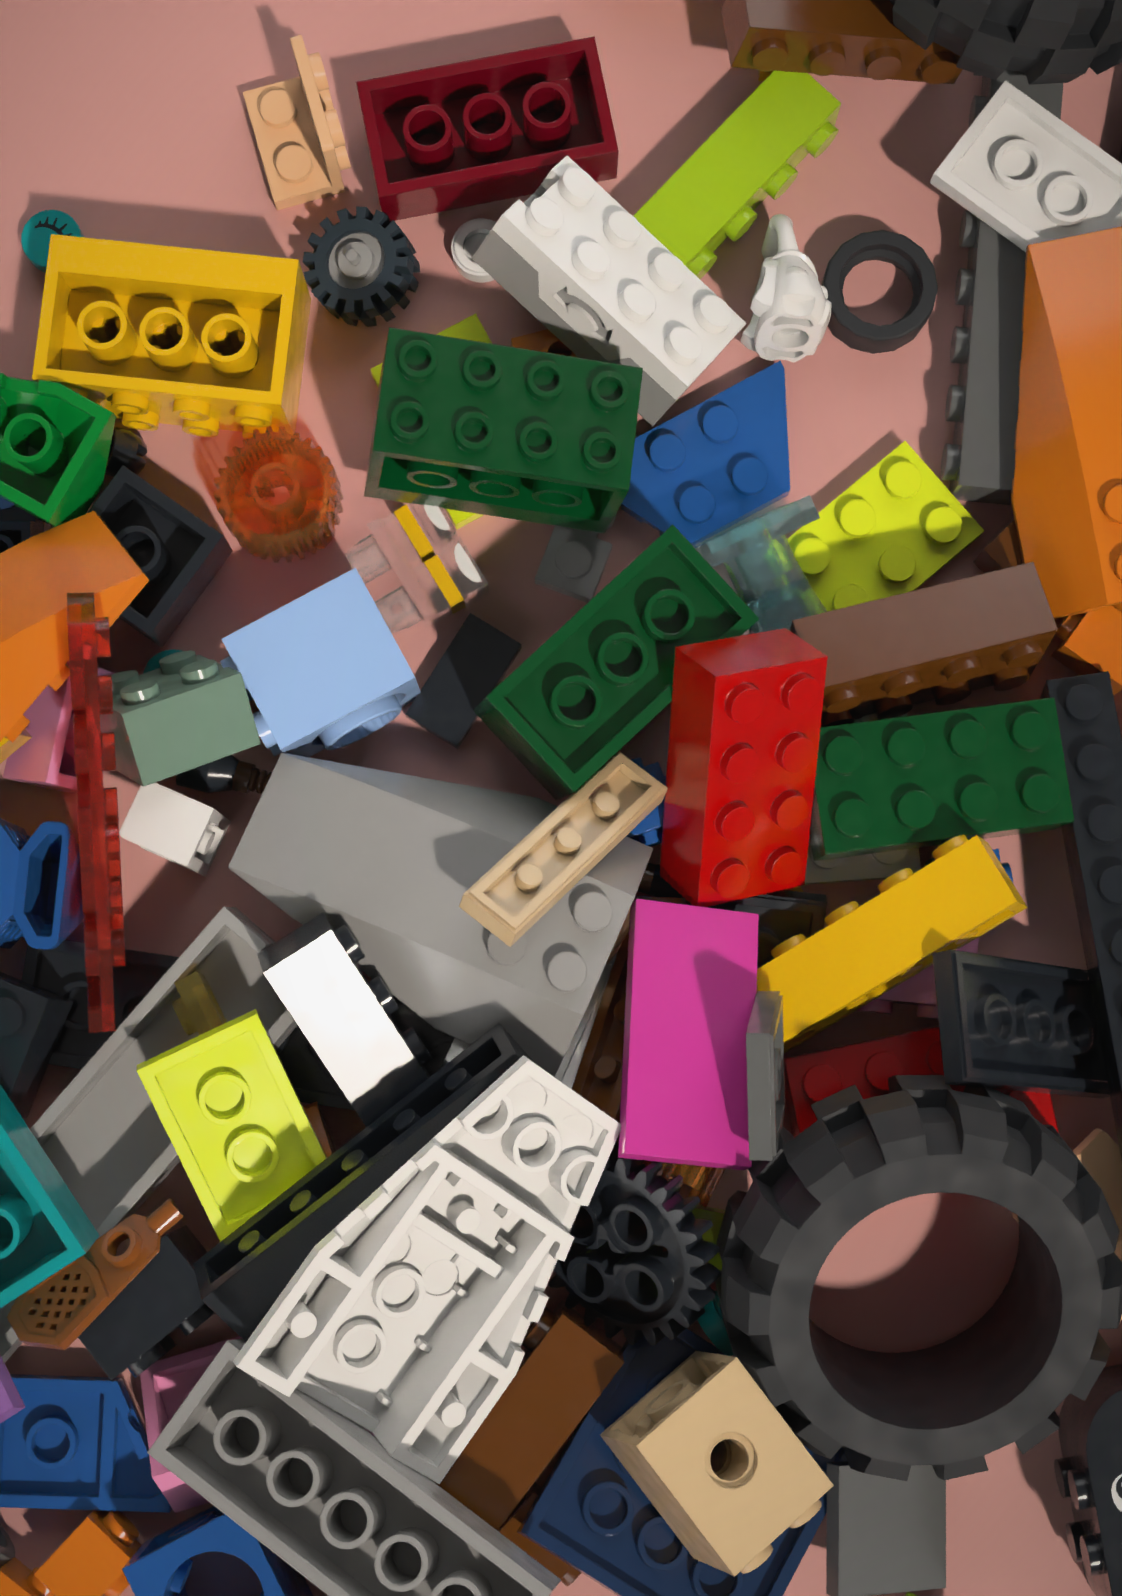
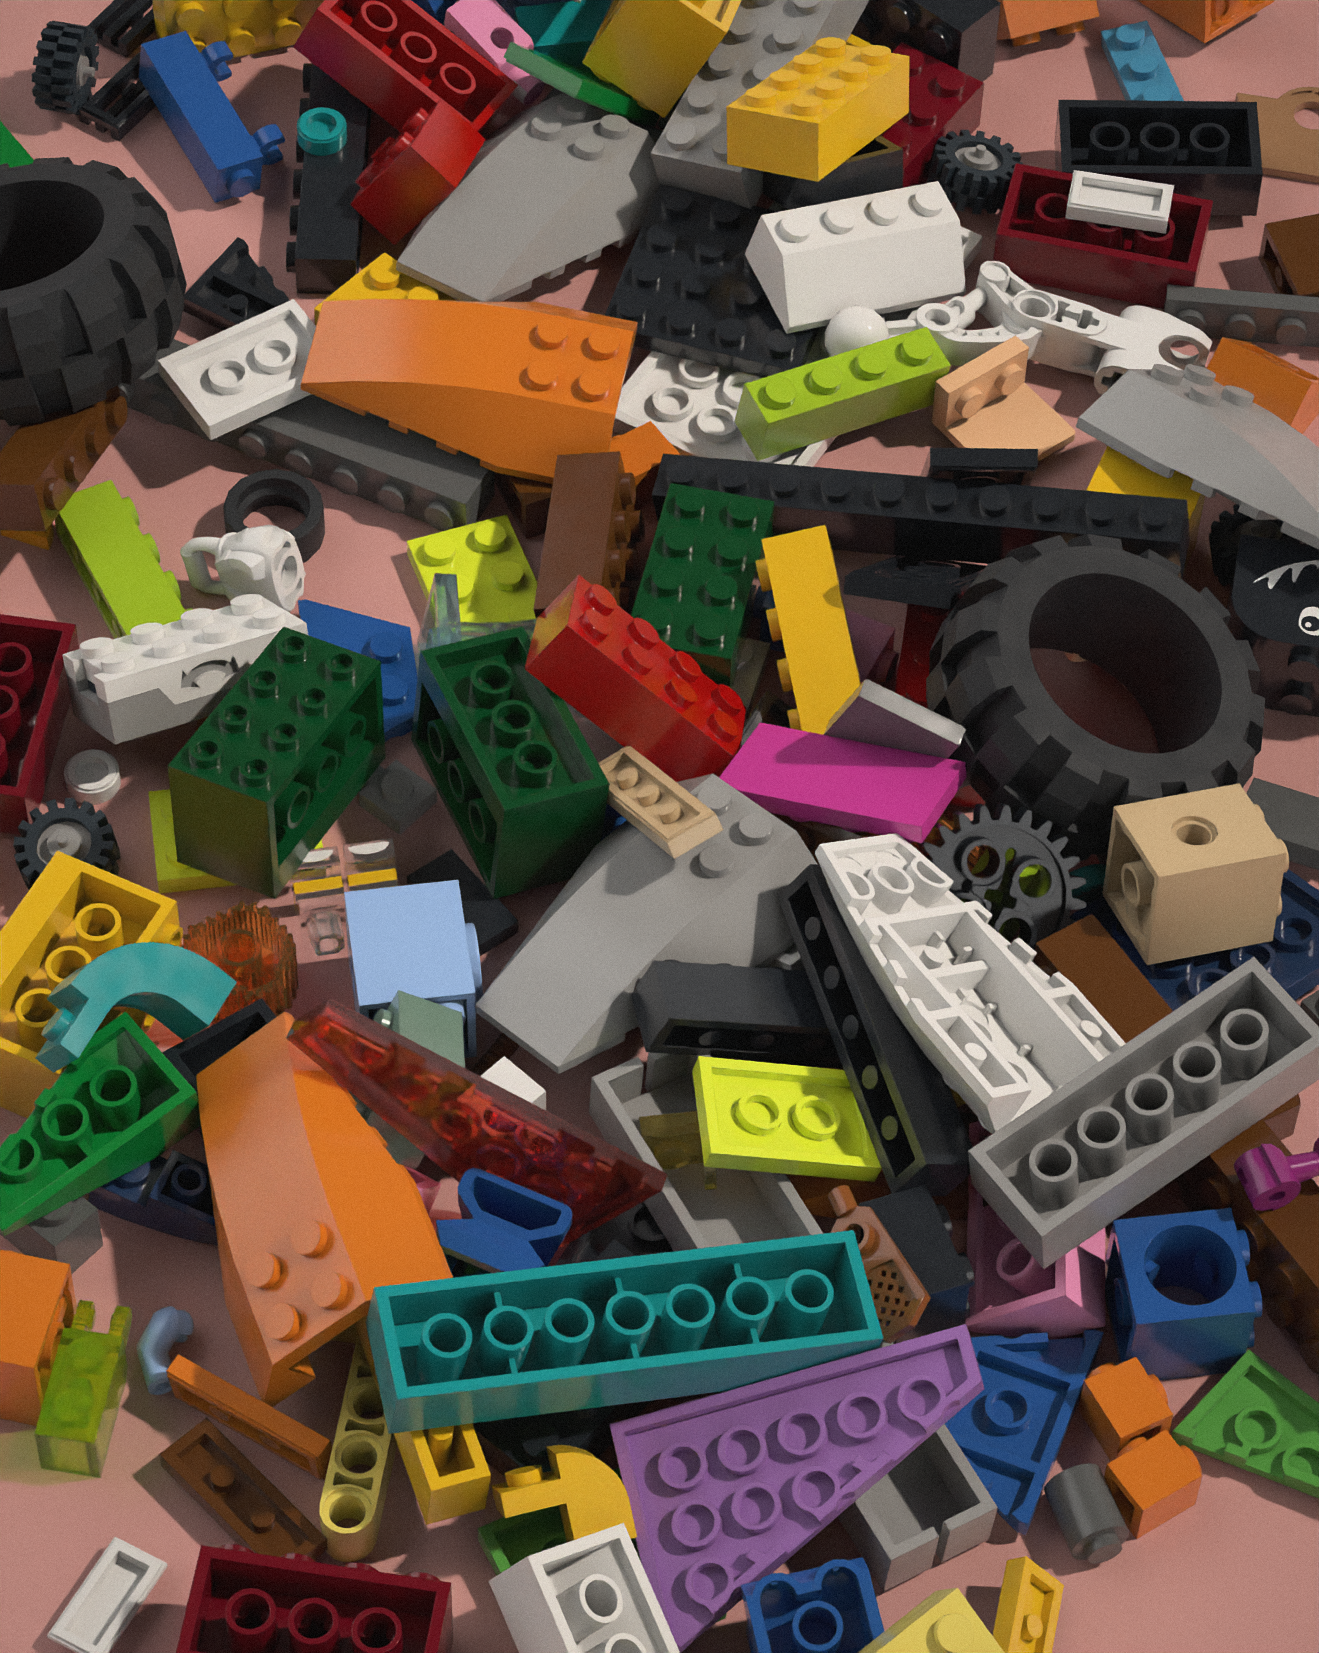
camera: 70 degrees left, 30 degrees down
(142, 392) = (149, 976): none -> teal arch

